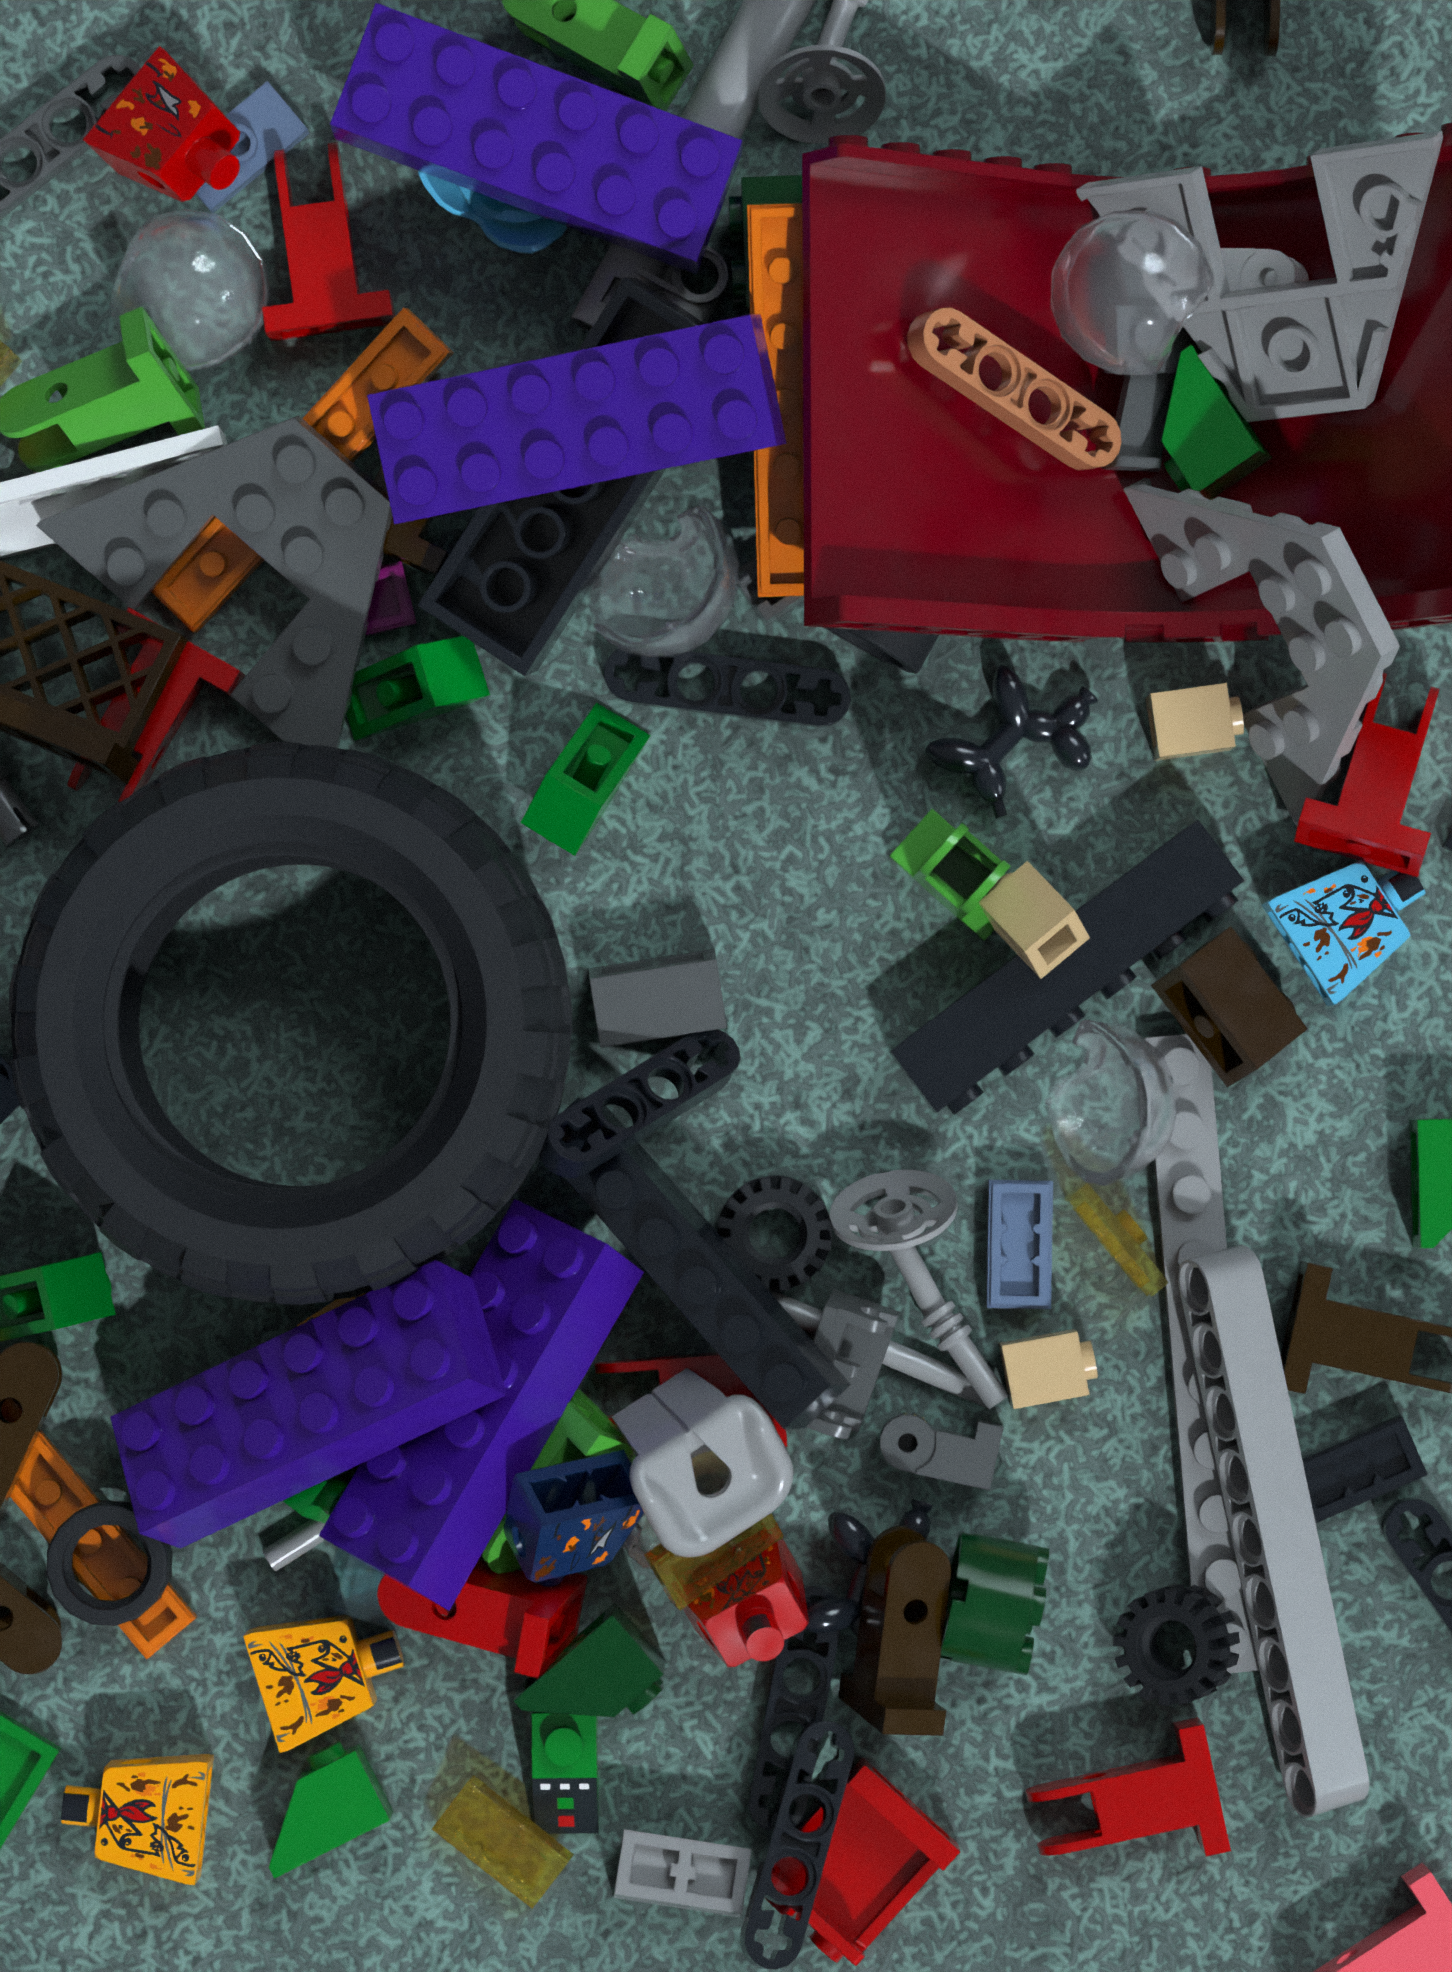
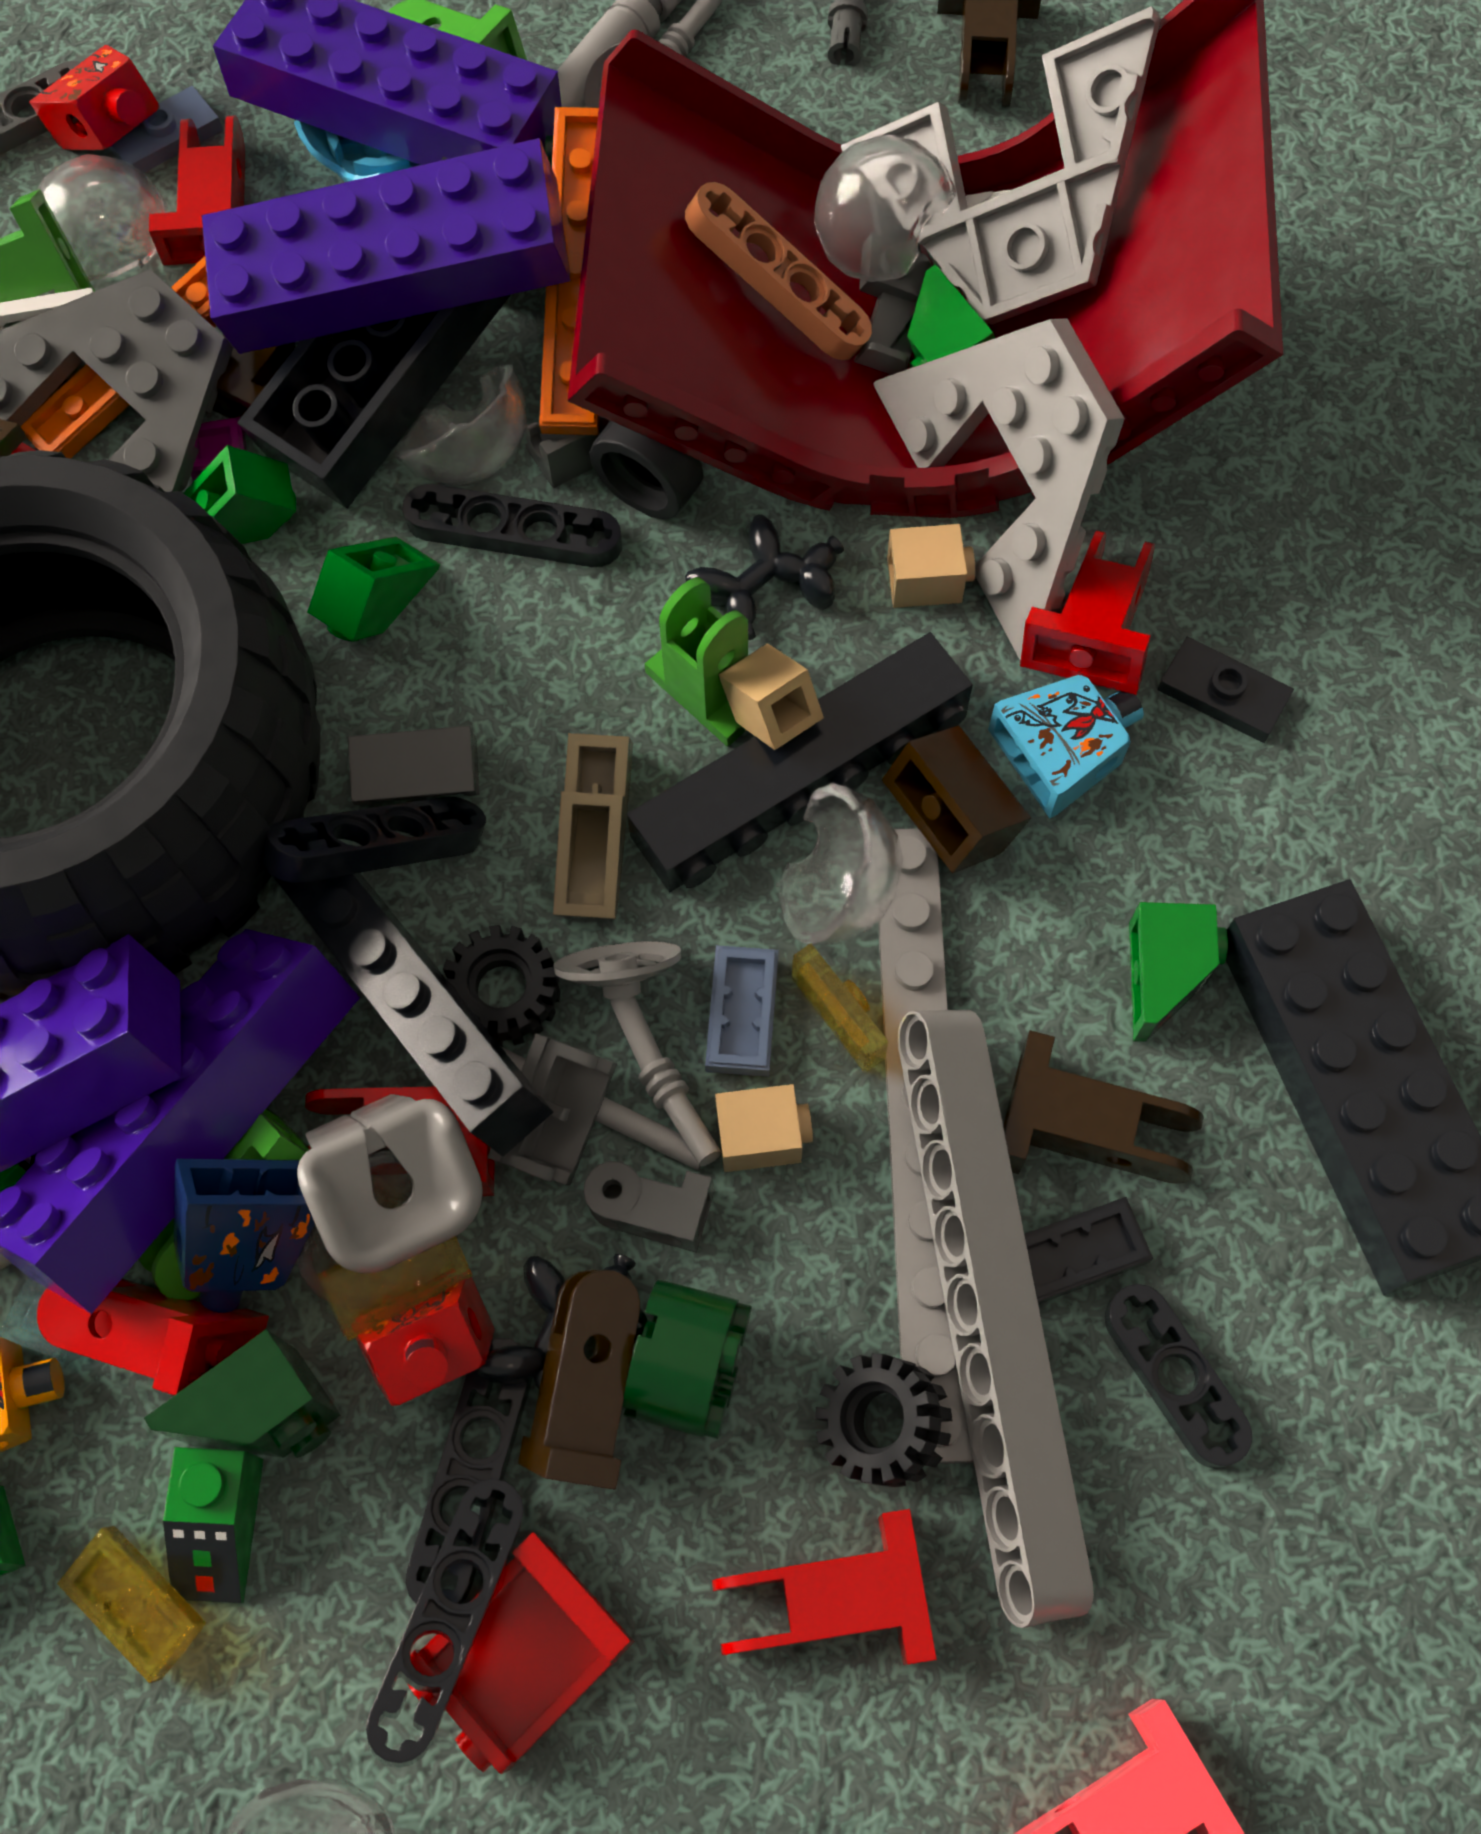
camera: 10 degrees right, 20 degrees down
(682, 1873) = (317, 1650): light grey hinge -> none
(851, 1050) = (592, 825): none -> dark tan slope

